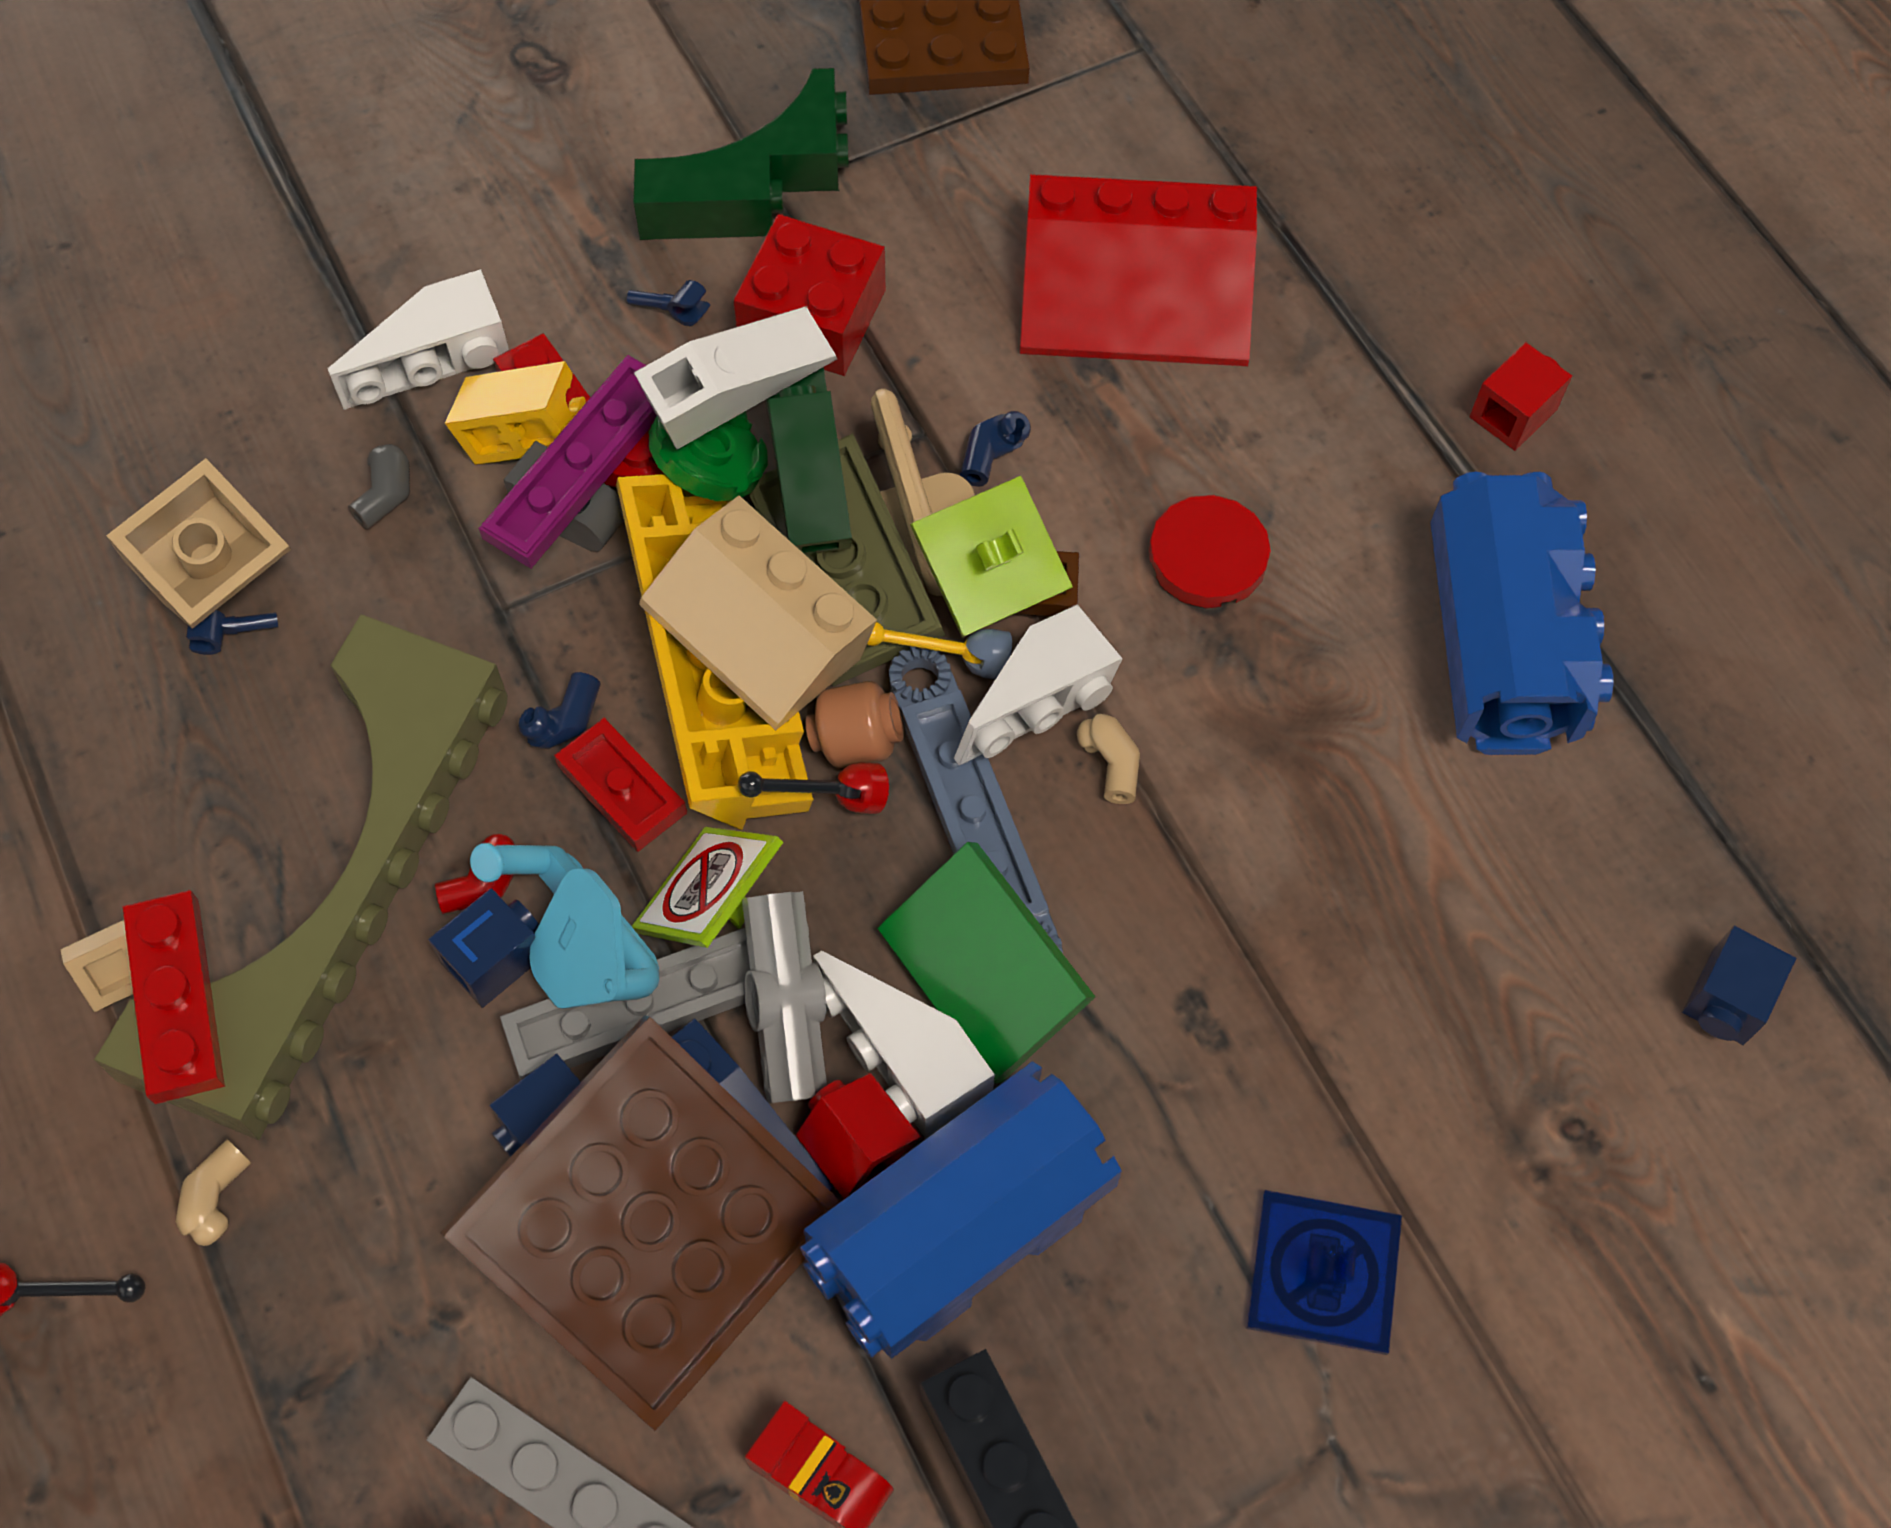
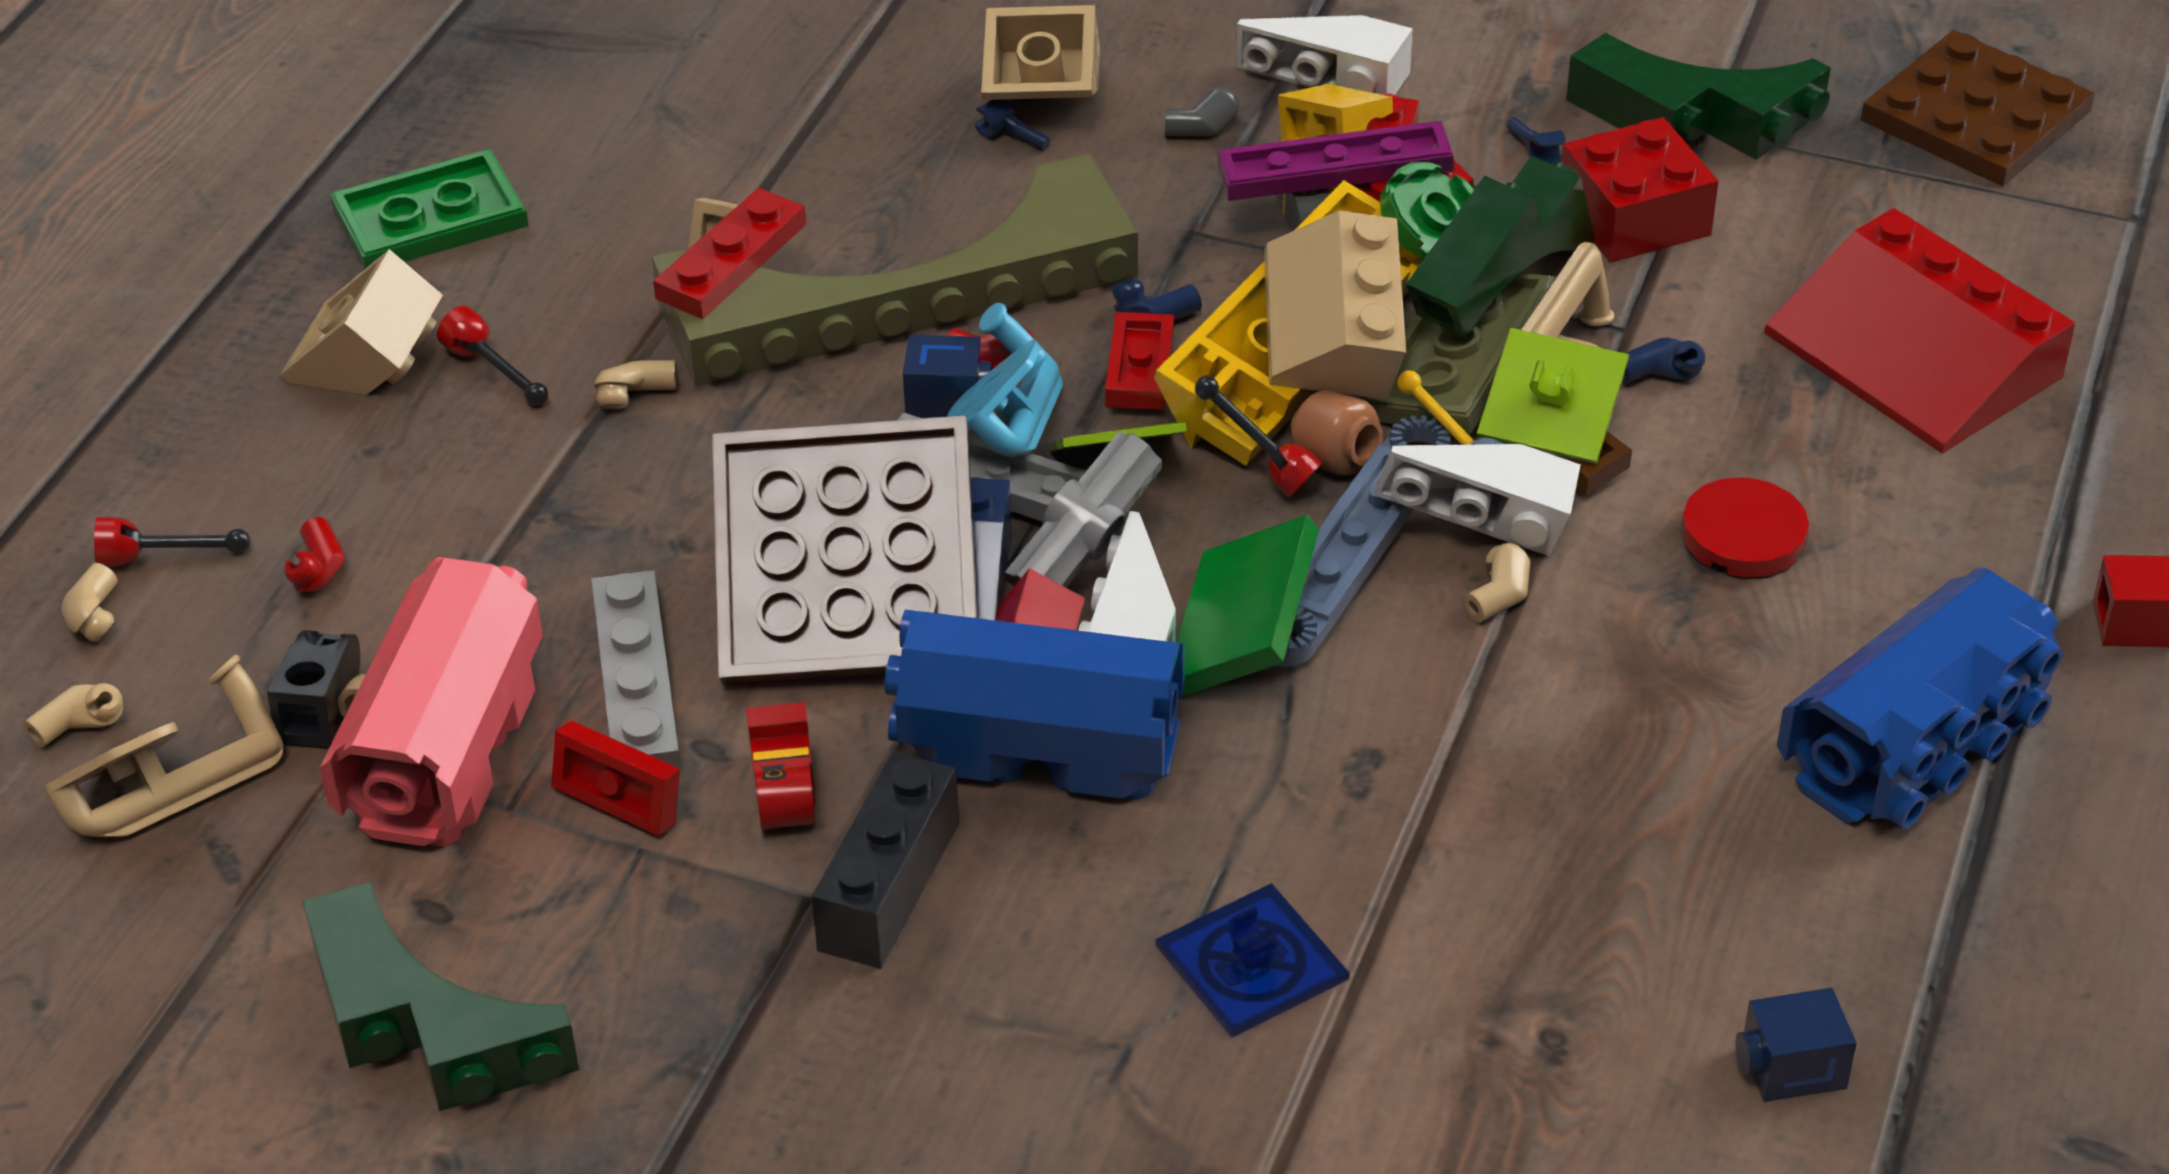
camera: 50 degrees right, 20 degrees down
(732, 372) = (1458, 142): white slope -> none

